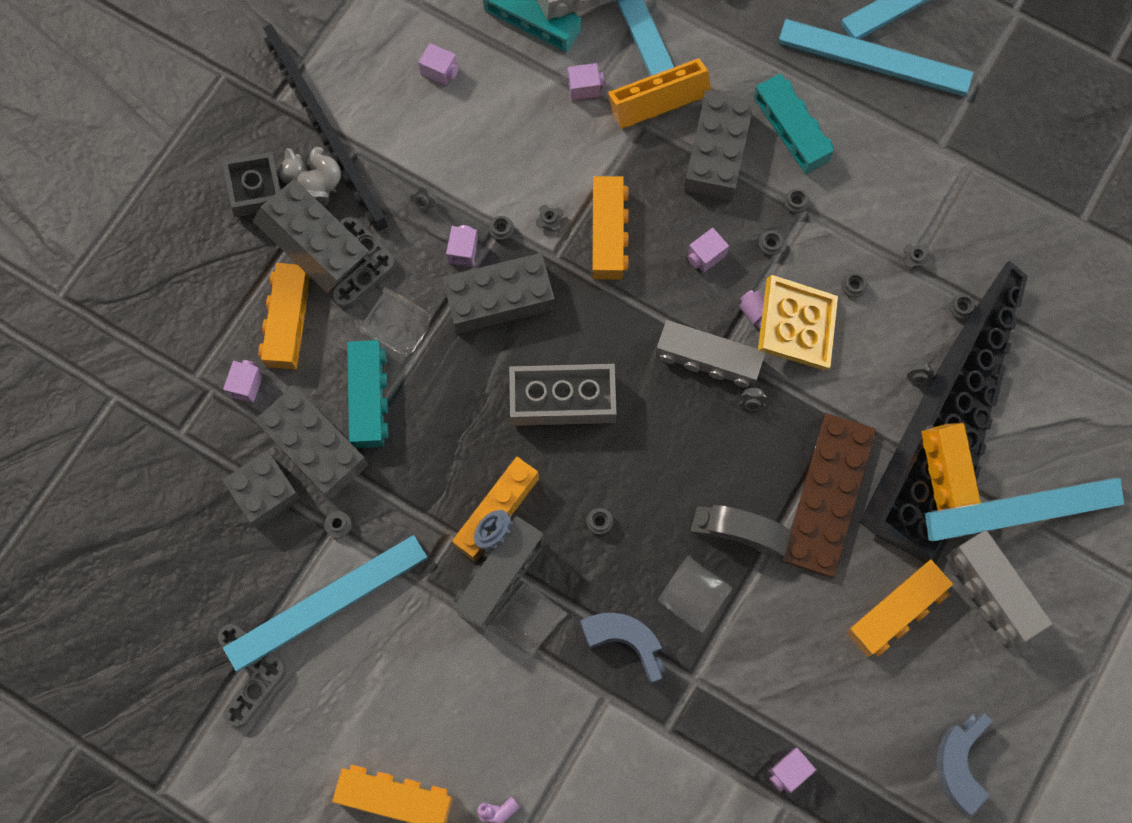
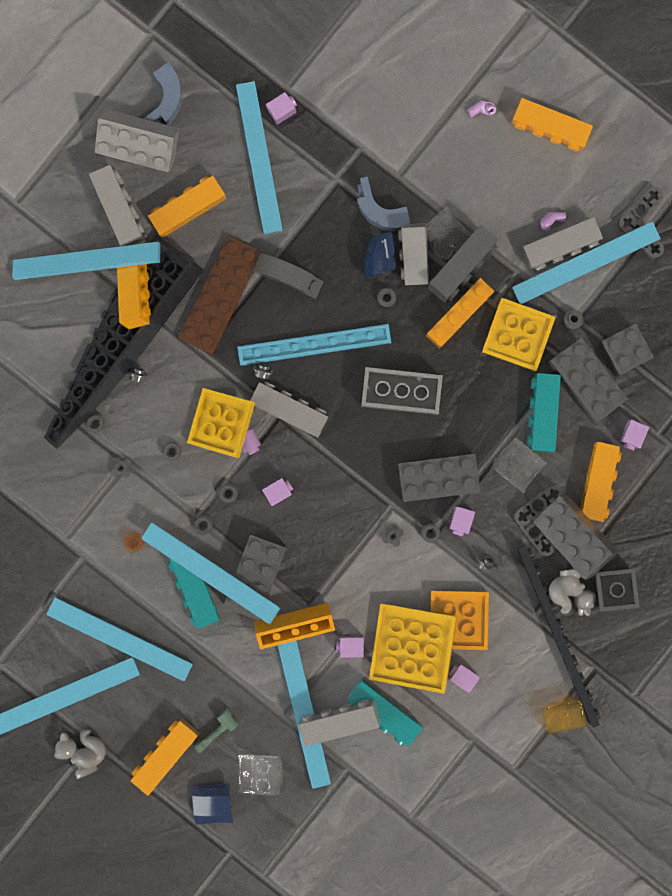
camera: 170 degrees left, 15 degrees up
(309, 36) = (563, 716): none -> clear yellow brick
(362, 625) = (561, 244): none -> light grey brick
(382, 662) = (550, 218): none -> lavender arm
(411, 493) = (518, 334): none -> yellow plate
(451, 129) = (471, 614): none -> light orange plate
(496, 522) = (461, 297): sand blue gear -> none
(506, 87) = (413, 648): none -> yellow plate
(569, 579) = (414, 254): none -> light grey brick
(608, 227) = (350, 520): light orange brick -> none
(618, 568) = (379, 255): none -> dark blue slope
(688, 446) = (314, 344): none -> medium azure tile
(694, 594) = (326, 236): clear slope -> none
(778, 134) = (211, 573): none -> medium azure tile
(811, 697) = (259, 158): none -> medium azure tile
(884, 163) = (129, 538): none -> clear orange plate
(992, 690) = (136, 140): none -> light grey brick

